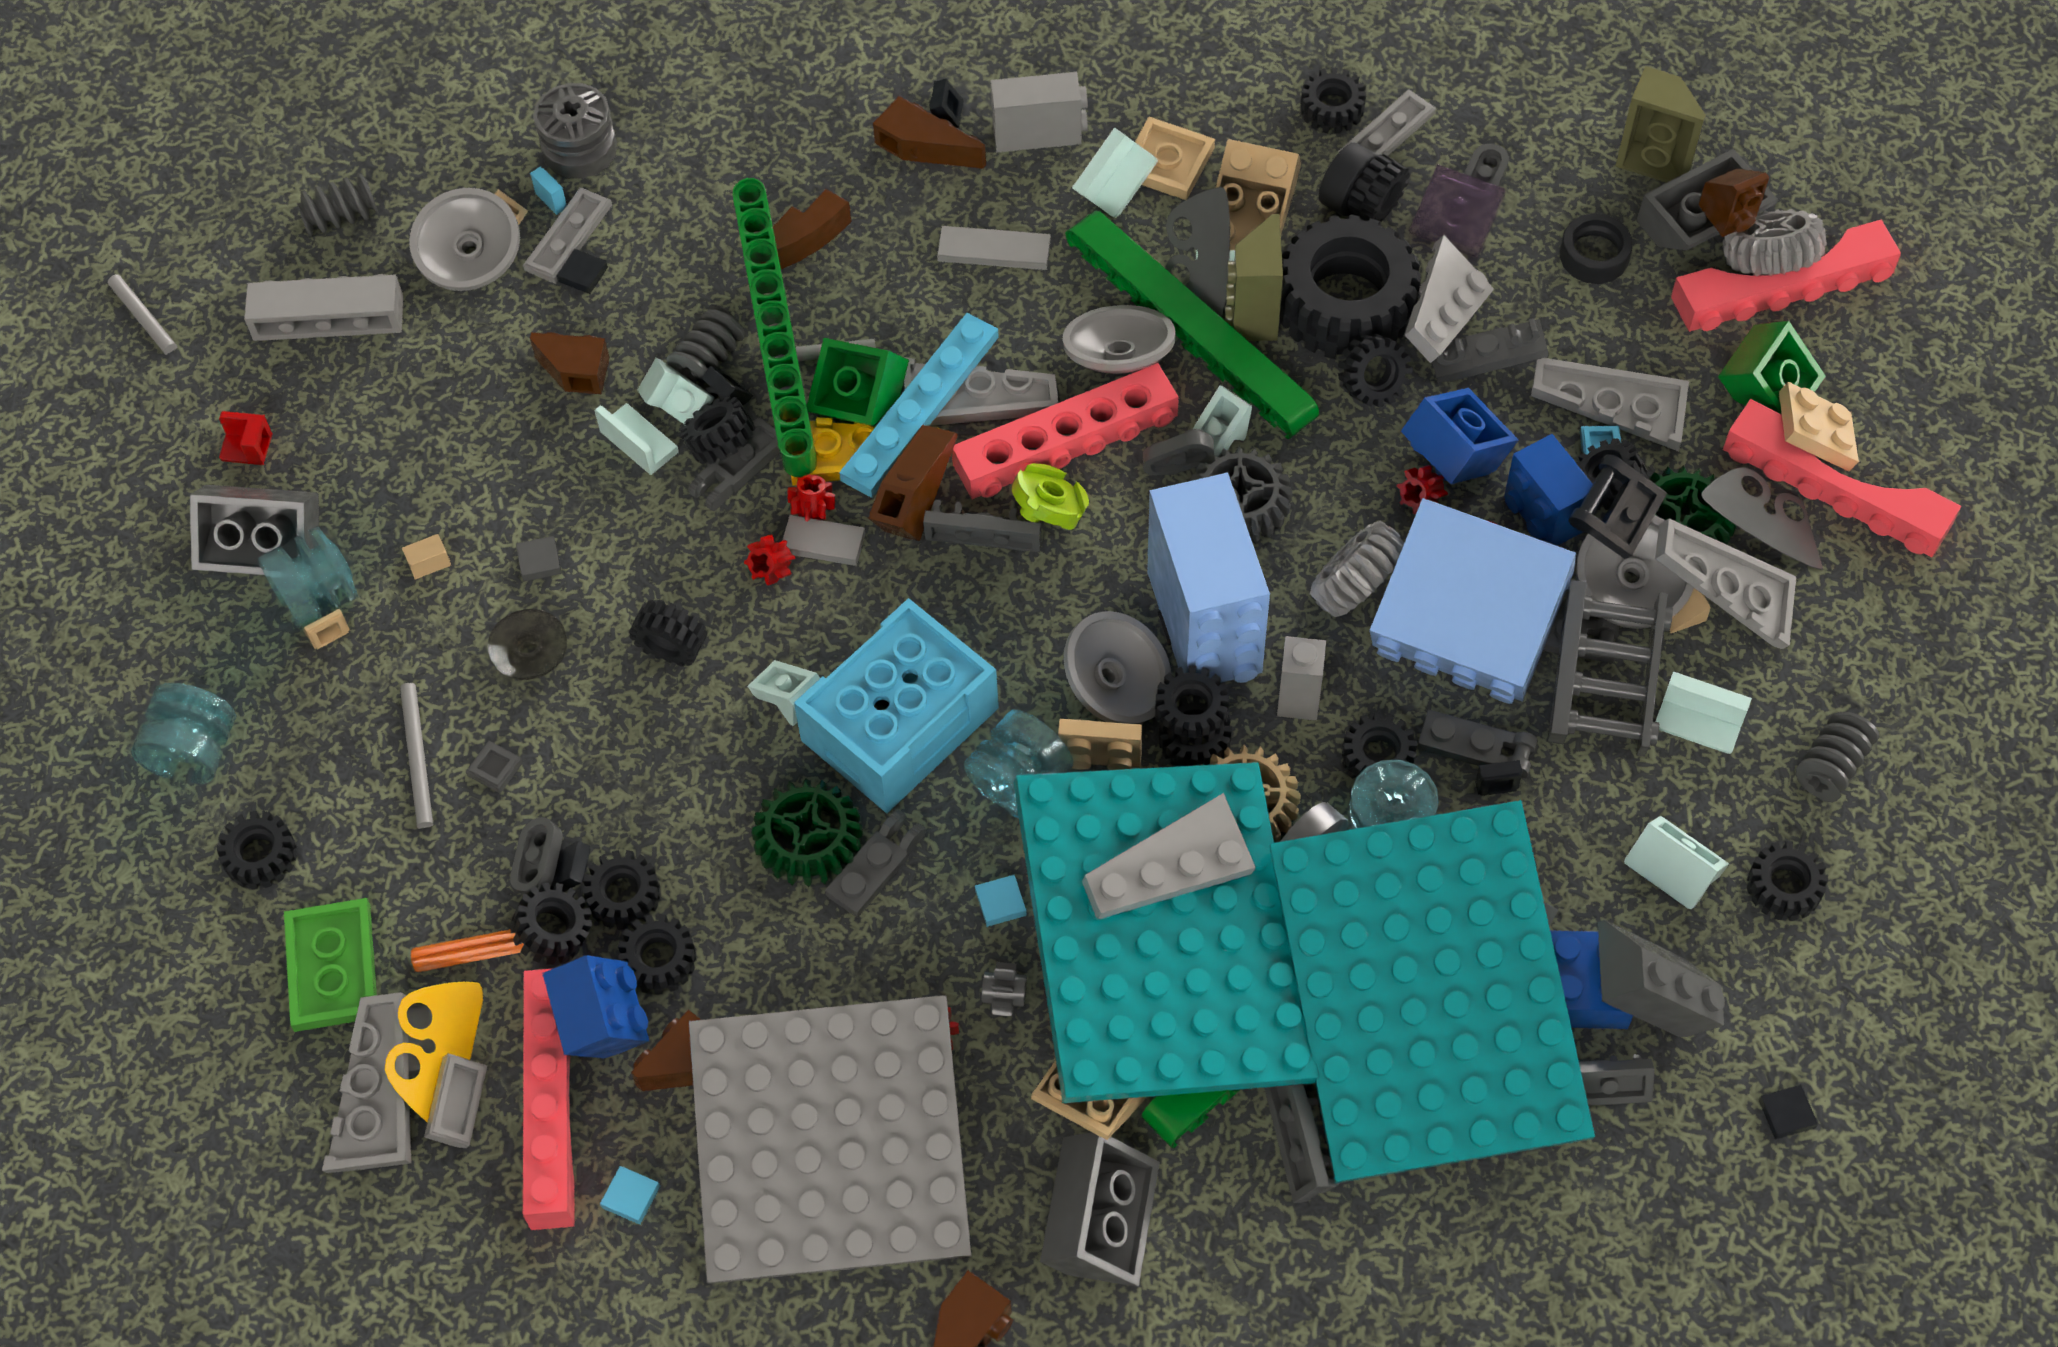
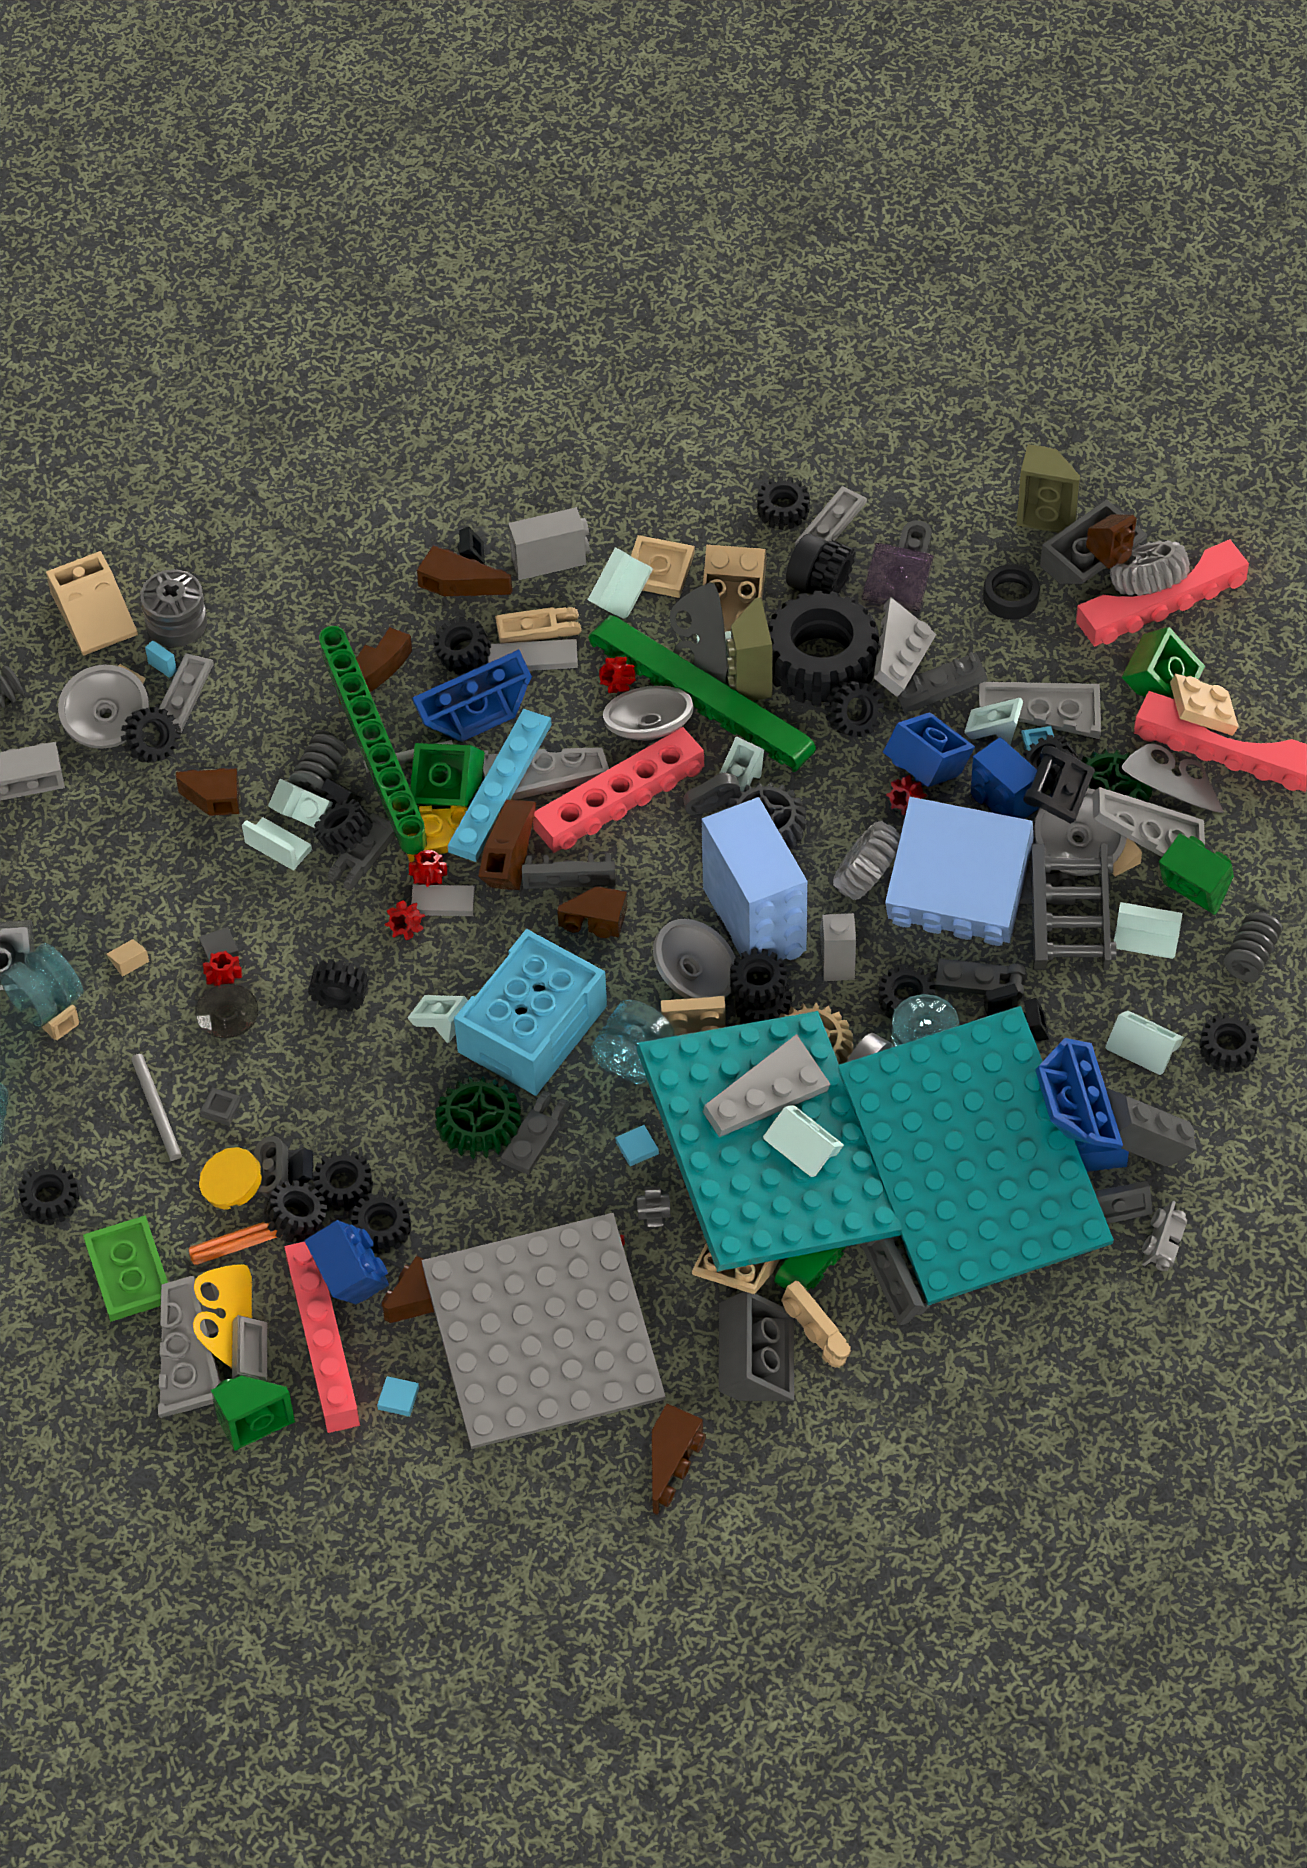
camera: 10 degrees left, 5 degrees down
(431, 1188) = (251, 1409): none -> green slope
(481, 111) = (91, 603): none -> tan slope
(483, 864) = (230, 1178): none -> yellow tile
(490, 281) = (134, 737): none -> black tyre
(533, 589) = (222, 969): none -> red gear
(582, 271) = (202, 719): black tile -> none
(906, 208) = (466, 657): none -> black tyre
(912, 292) = (476, 698): none -> blue wedge
(1007, 210) = (537, 625): none -> tan hinge
(1015, 580) = (601, 906): none -> reddish brown slope
(1048, 496) = (616, 841): lime plate -> none
(1091, 285) = (617, 674): none -> red gear
(1184, 1188) = (816, 1324): none -> tan hinge
(1205, 940) = (802, 1140): none -> light aqua panel
(1539, 811) = (1036, 1019): none -> black tile
(1549, 408) = (994, 719): none -> light aqua slope
(1578, 936) = (1077, 1095): none -> blue wedge
(1668, 1122) = (1167, 1225): none -> light grey hinge
(1778, 647) = (1196, 872): none -> green slope
(1788, 1112) = (1253, 1205): black tile -> none

